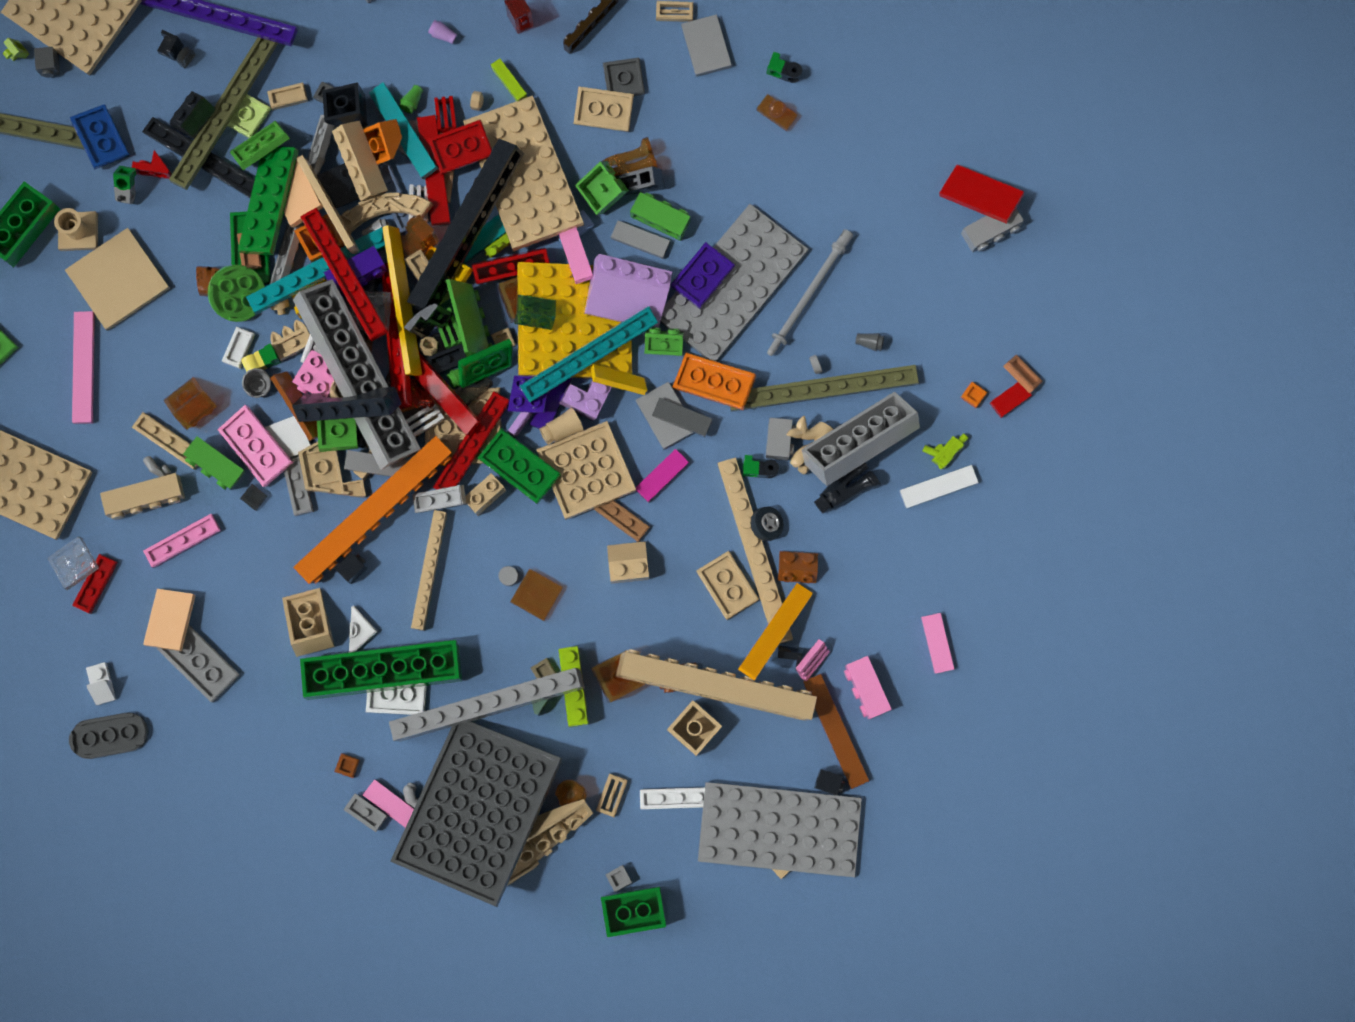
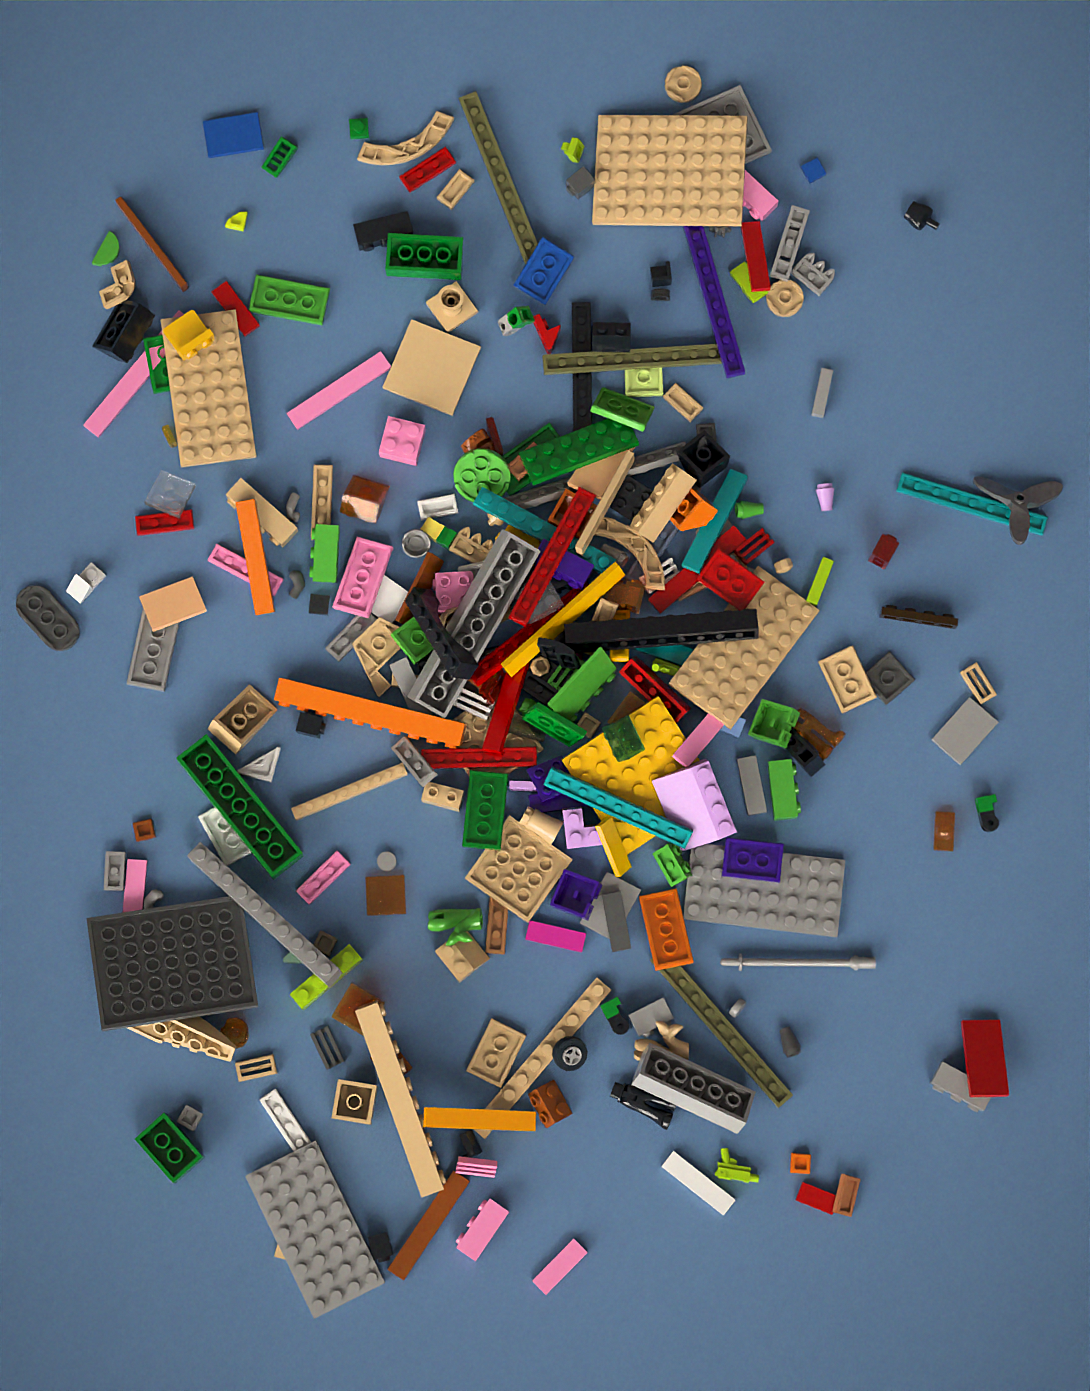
camera: 60 degrees right, 0 degrees up
(23, 533) = (169, 436): none -> clear yellow tile
(162, 340) = (402, 440): none -> bright pink brick
(176, 523) = (255, 557): none -> orange tile
(199, 260) = (492, 430): none -> clear red tile
(223, 502) = (299, 583): none -> dark grey arm
(487, 638) = (323, 877): none -> bright pink tile
(598, 541) = (461, 919): none -> bright green piece
(633, 716) = (320, 1032): none -> dark grey tile
(638, 436) = (575, 894): none -> dark purple piece

